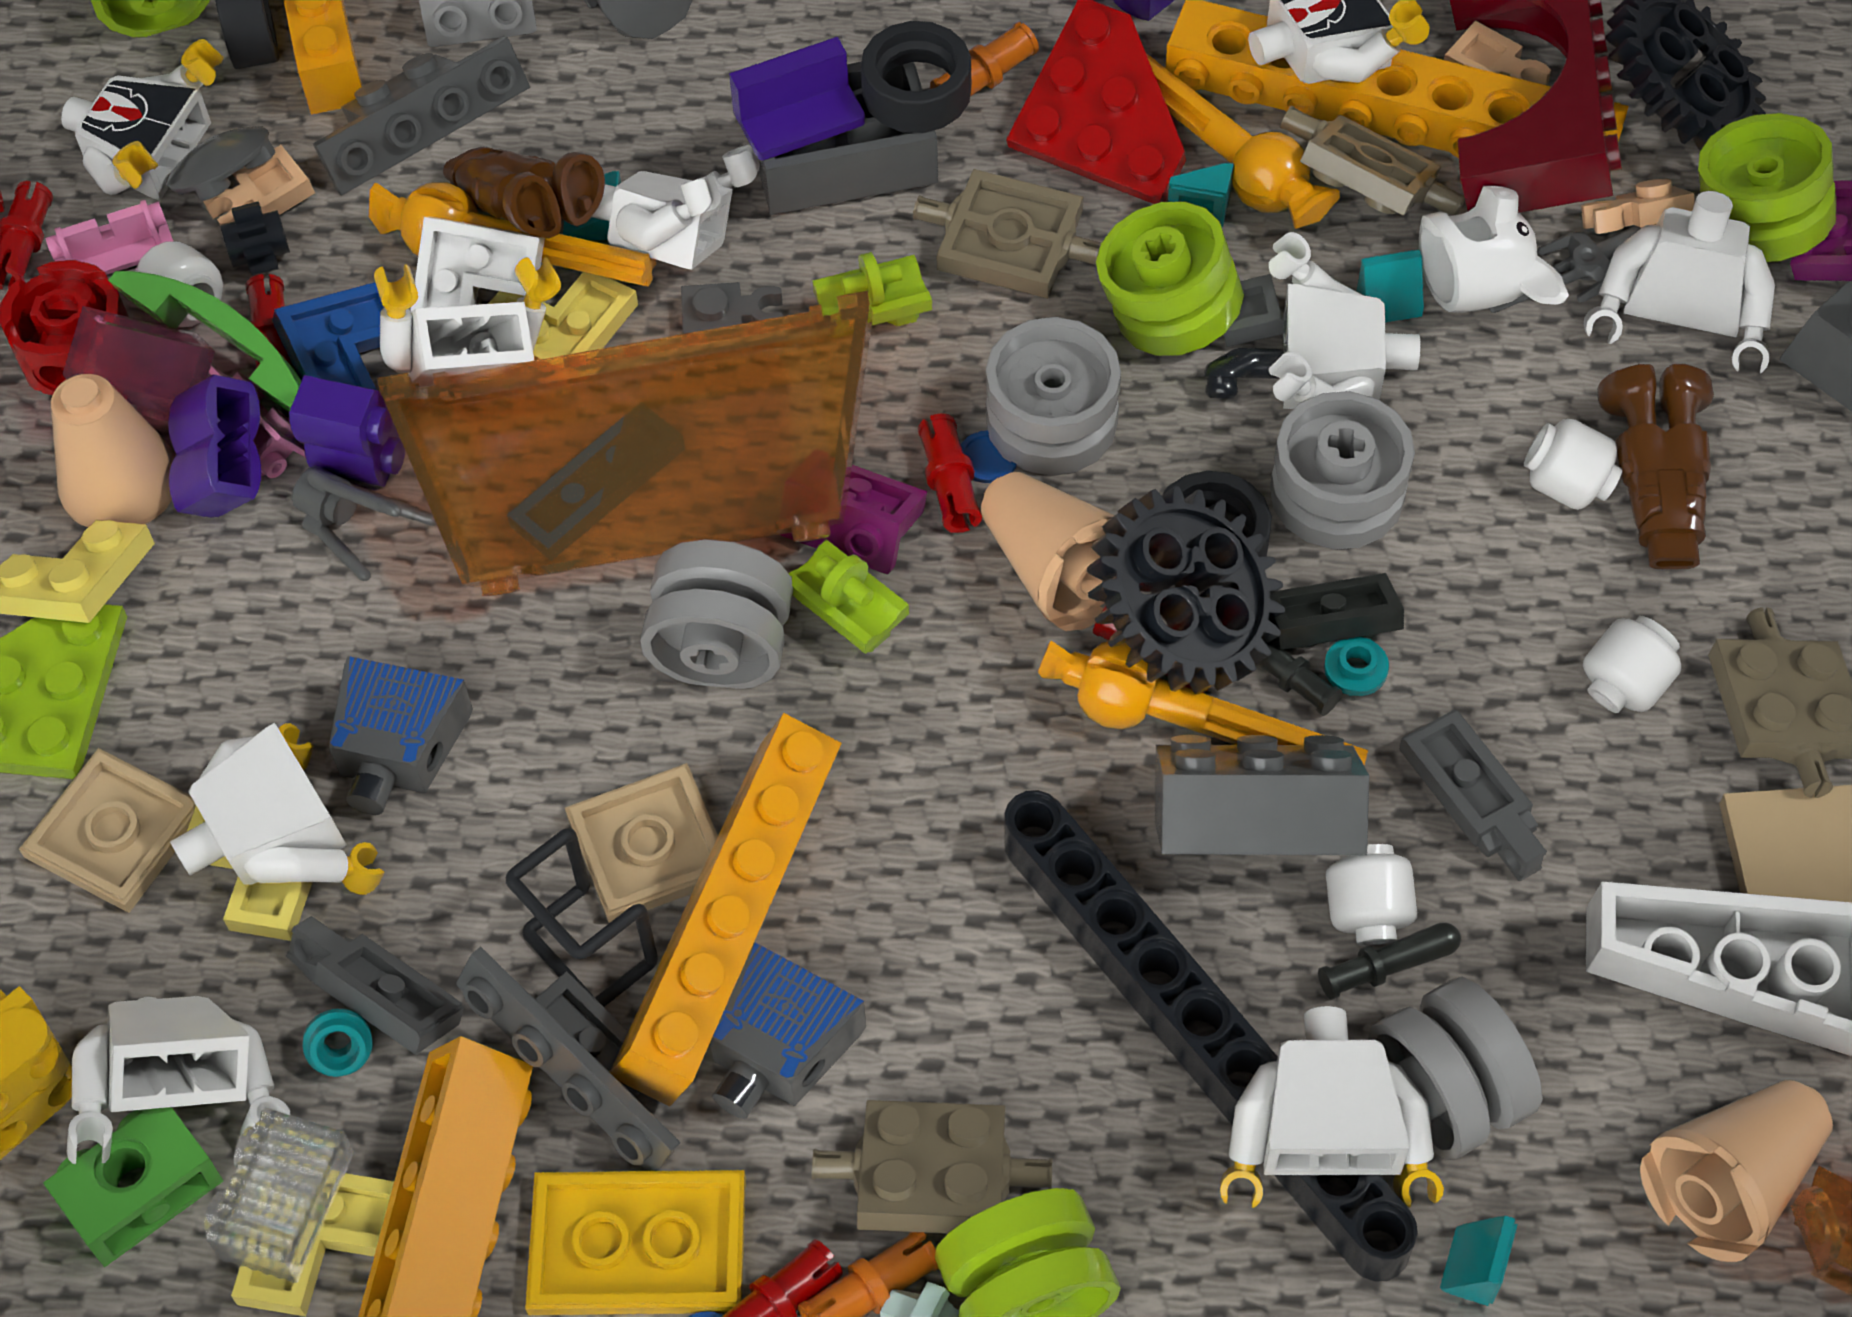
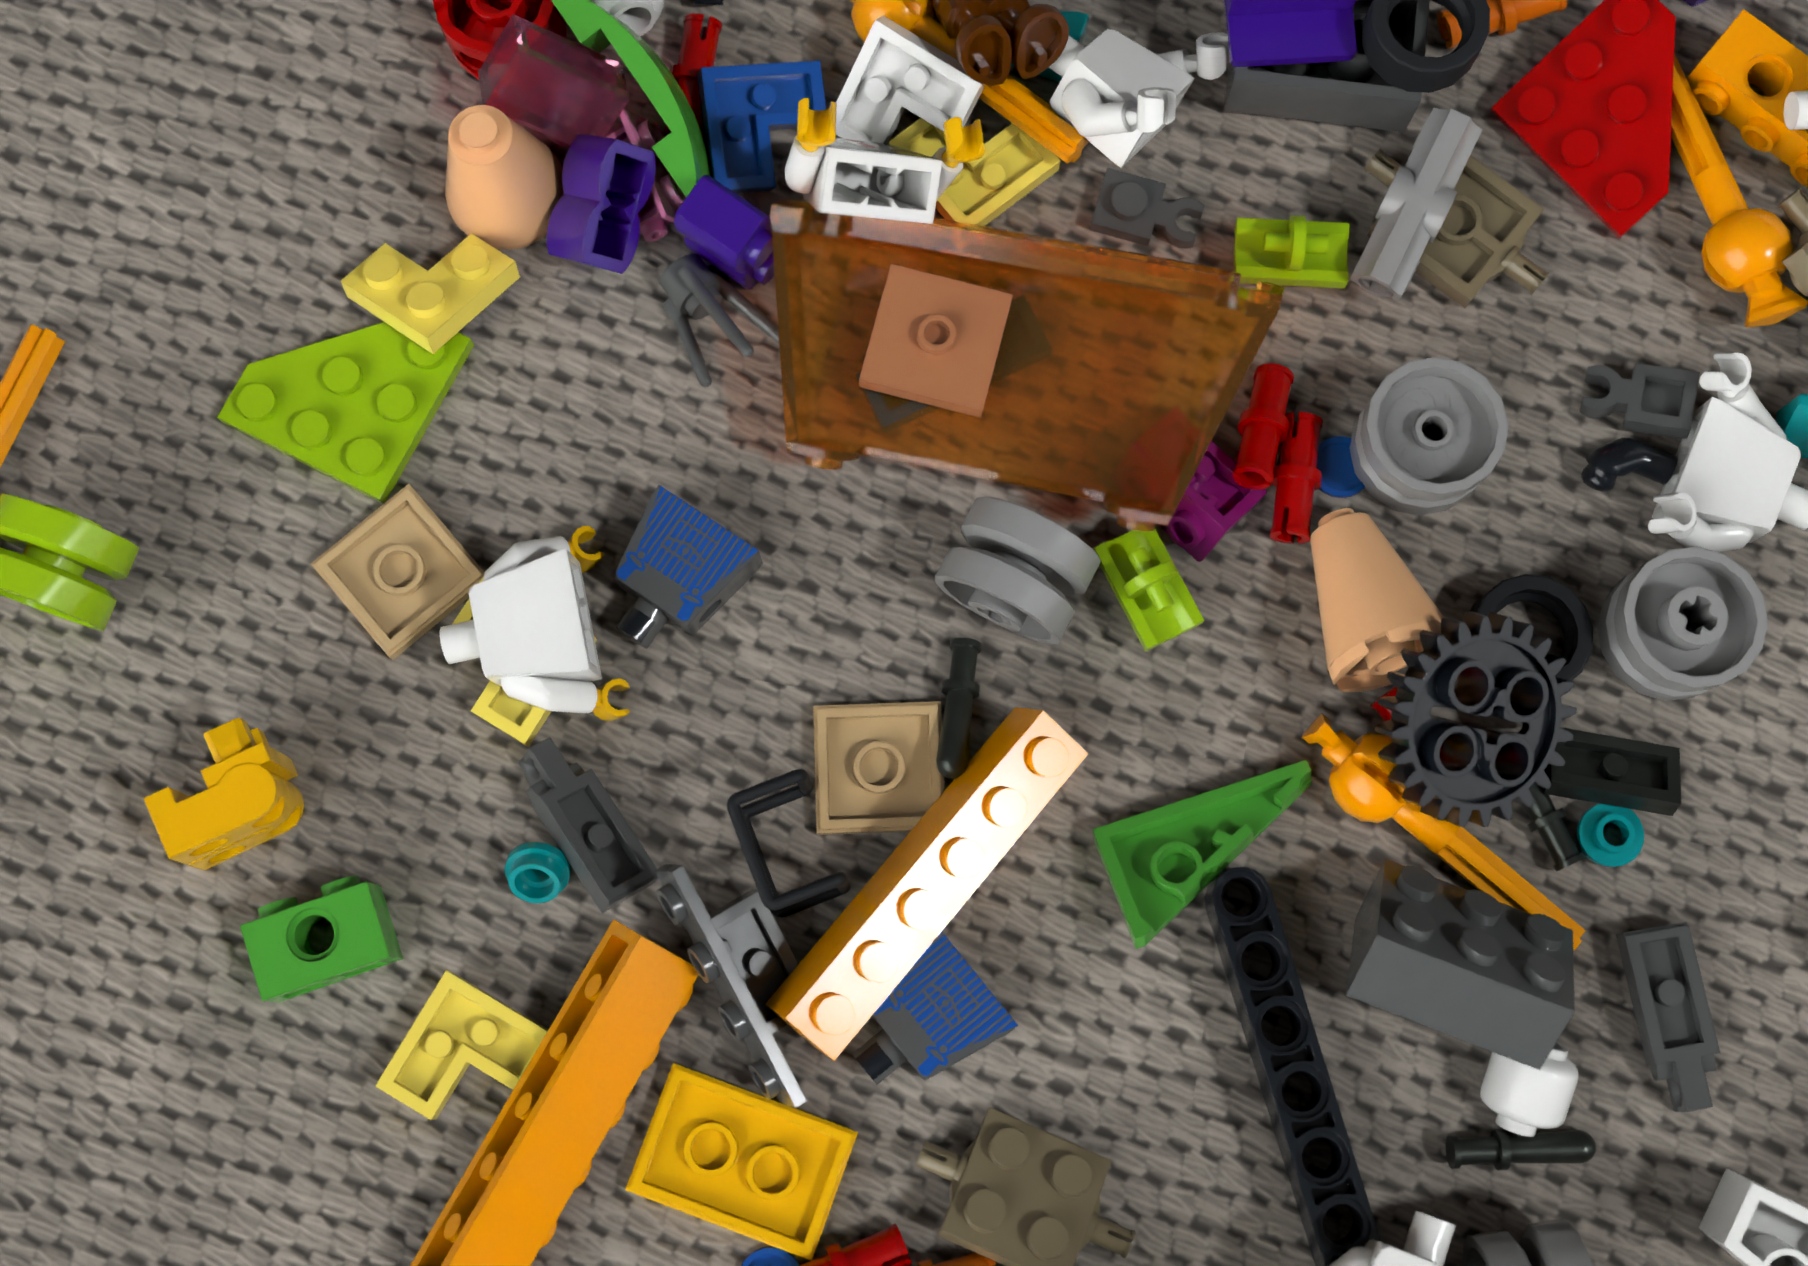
camera: 20 degrees right, 20 degrees up
(162, 1058) = (382, 845): white torso -> none
(278, 1194) = (437, 1018): clear brick -> none
(571, 456) = (935, 340): none -> nougat plate
(703, 749) = (960, 692): none -> pearl dark grey piece
(902, 438) = (1263, 426): none -> red pin
(958, 813) = (1177, 850): none -> bright green wing
(966, 219) = (1416, 204): none -> light grey piece
(1170, 278) = (1596, 346): lime wheel -> none
(1204, 188) = (1665, 251): teal slope -> none

